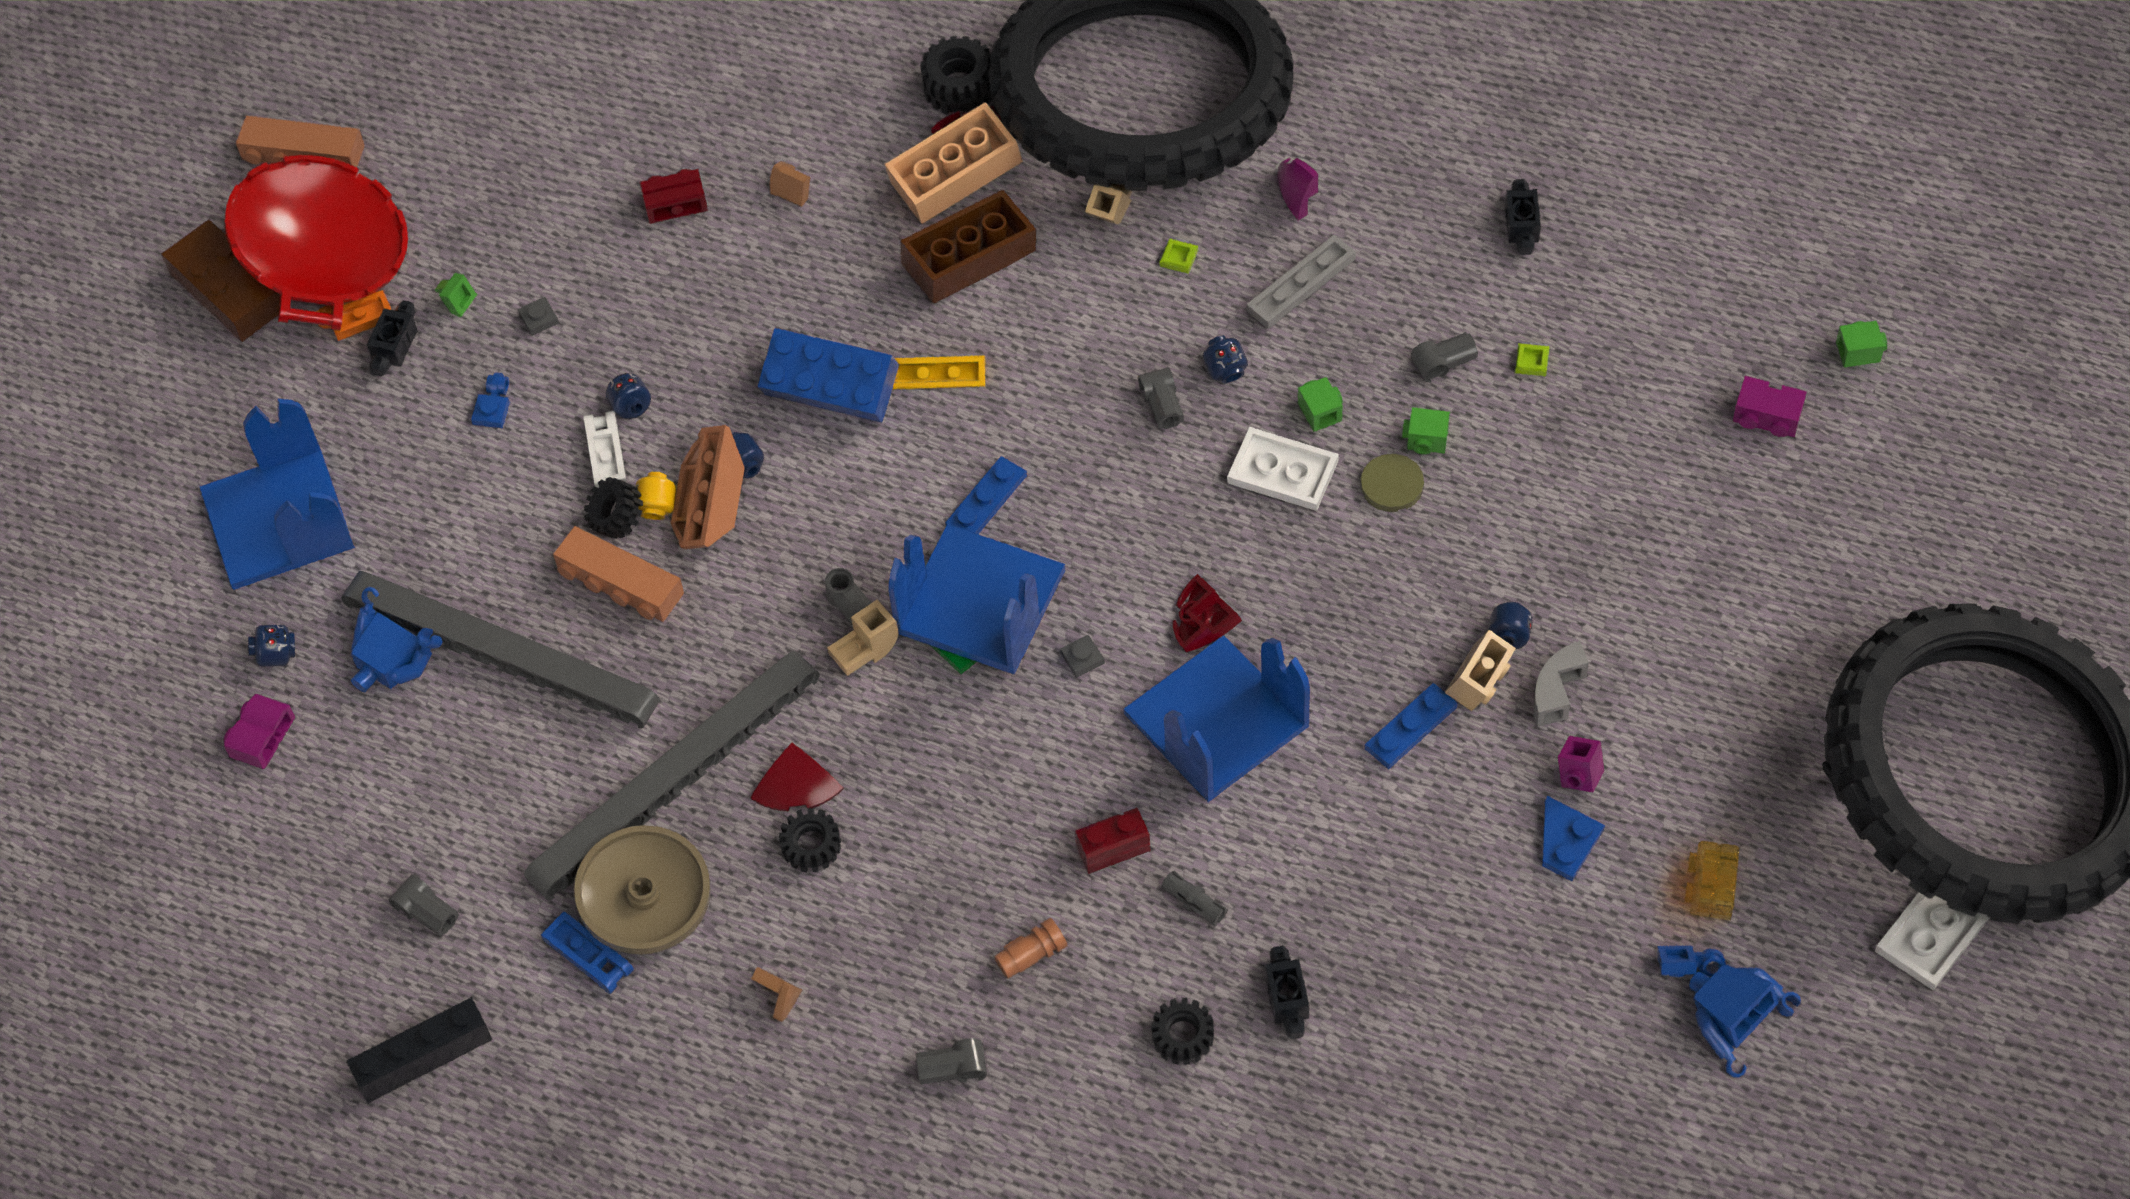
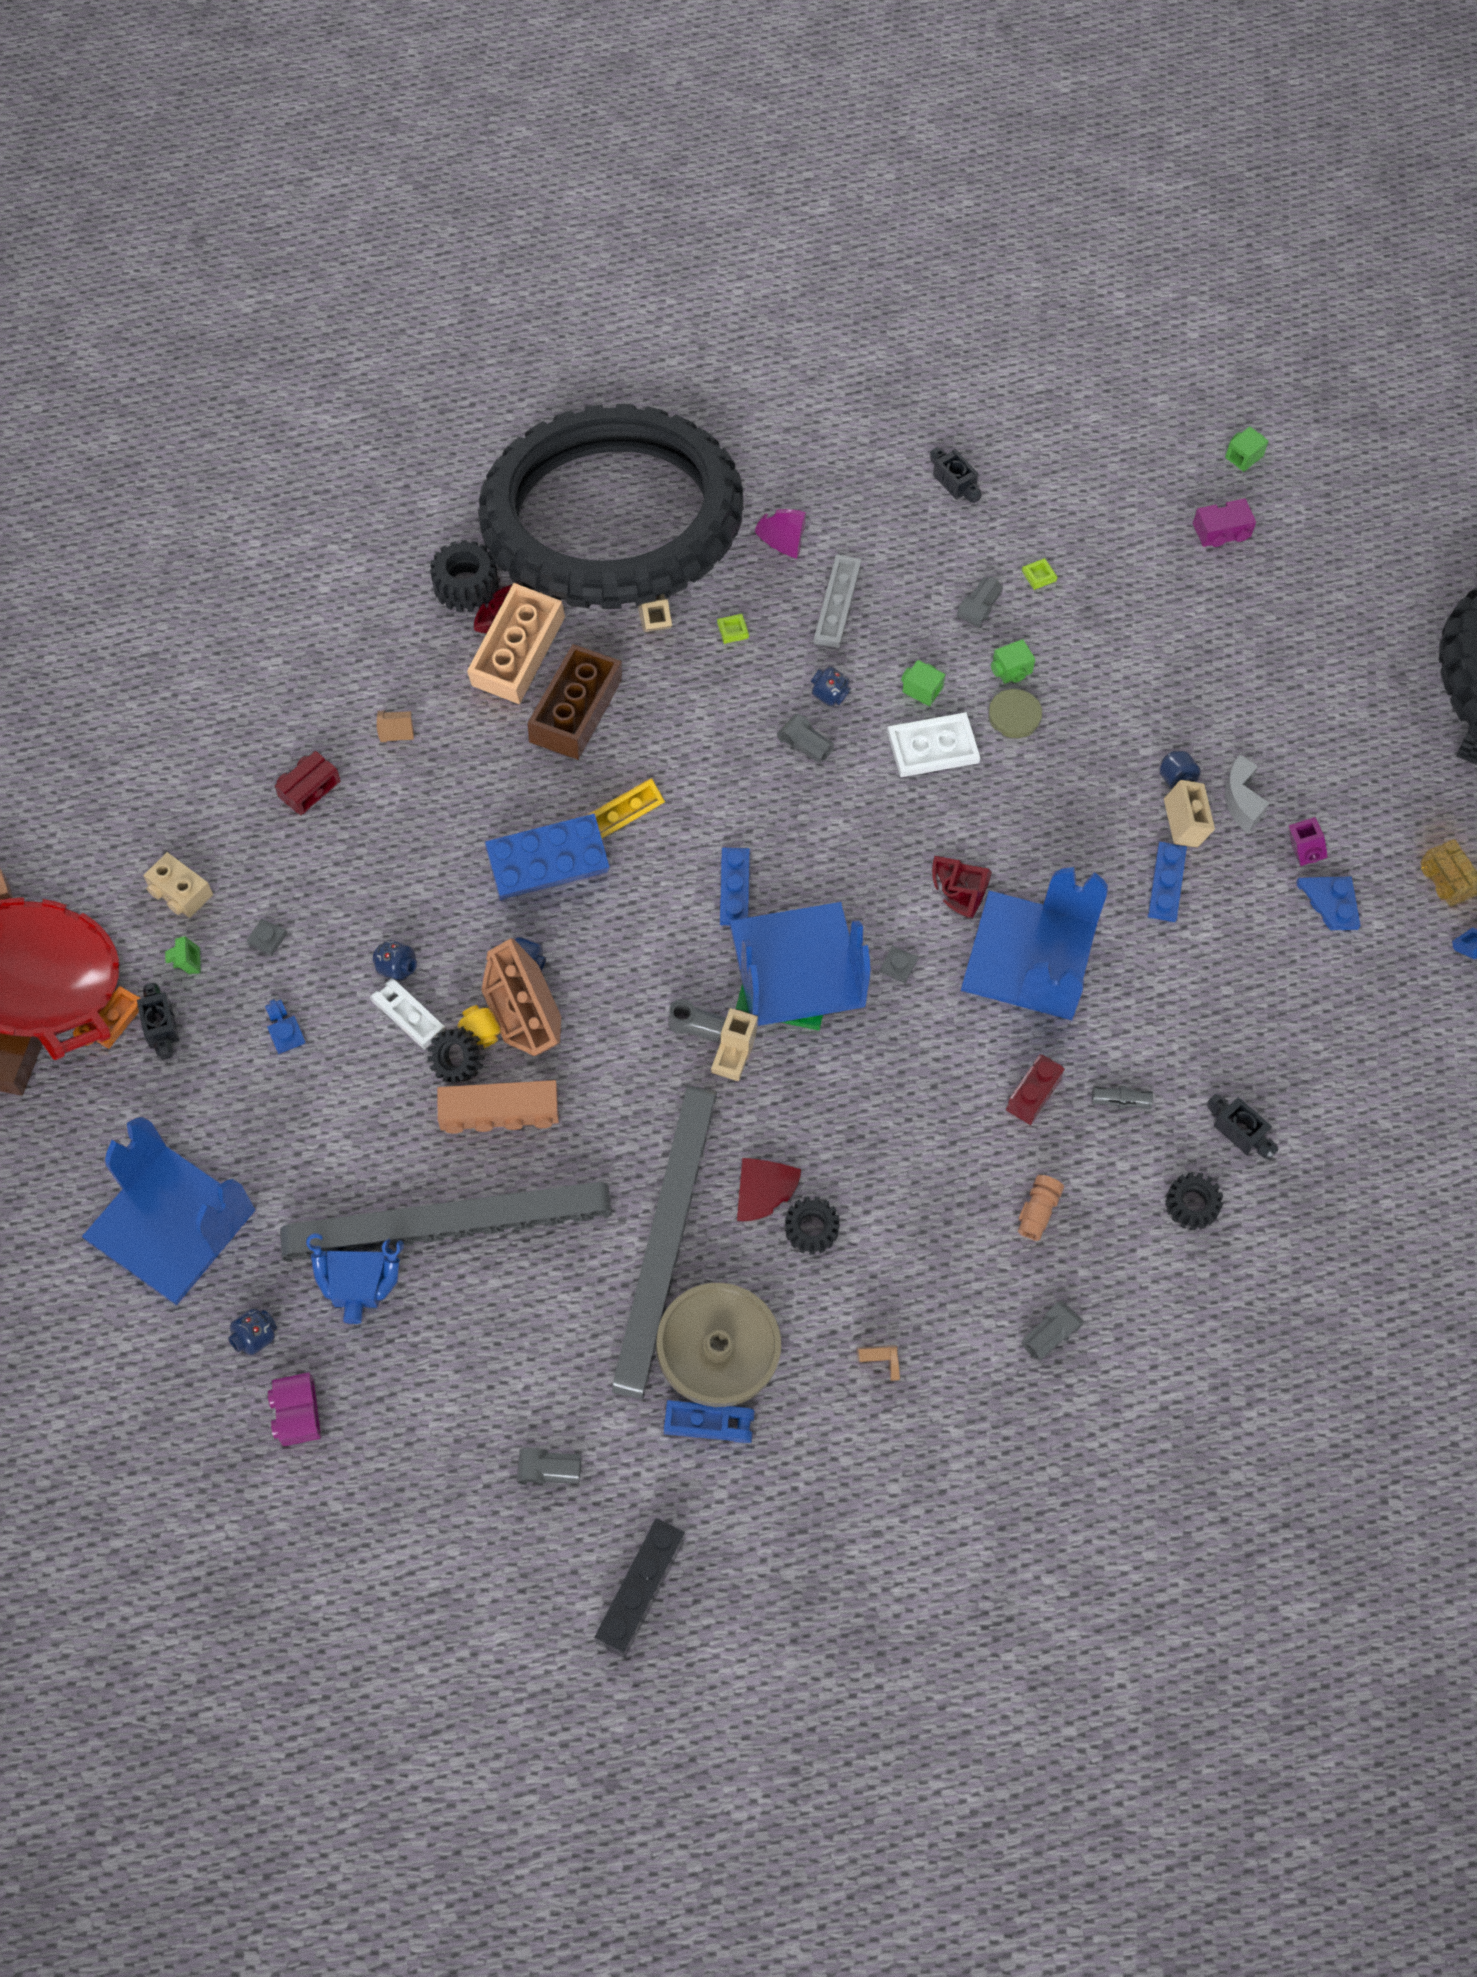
camera: 40 degrees left, 5 degrees up
(495, 227) = (177, 885): none -> tan brick

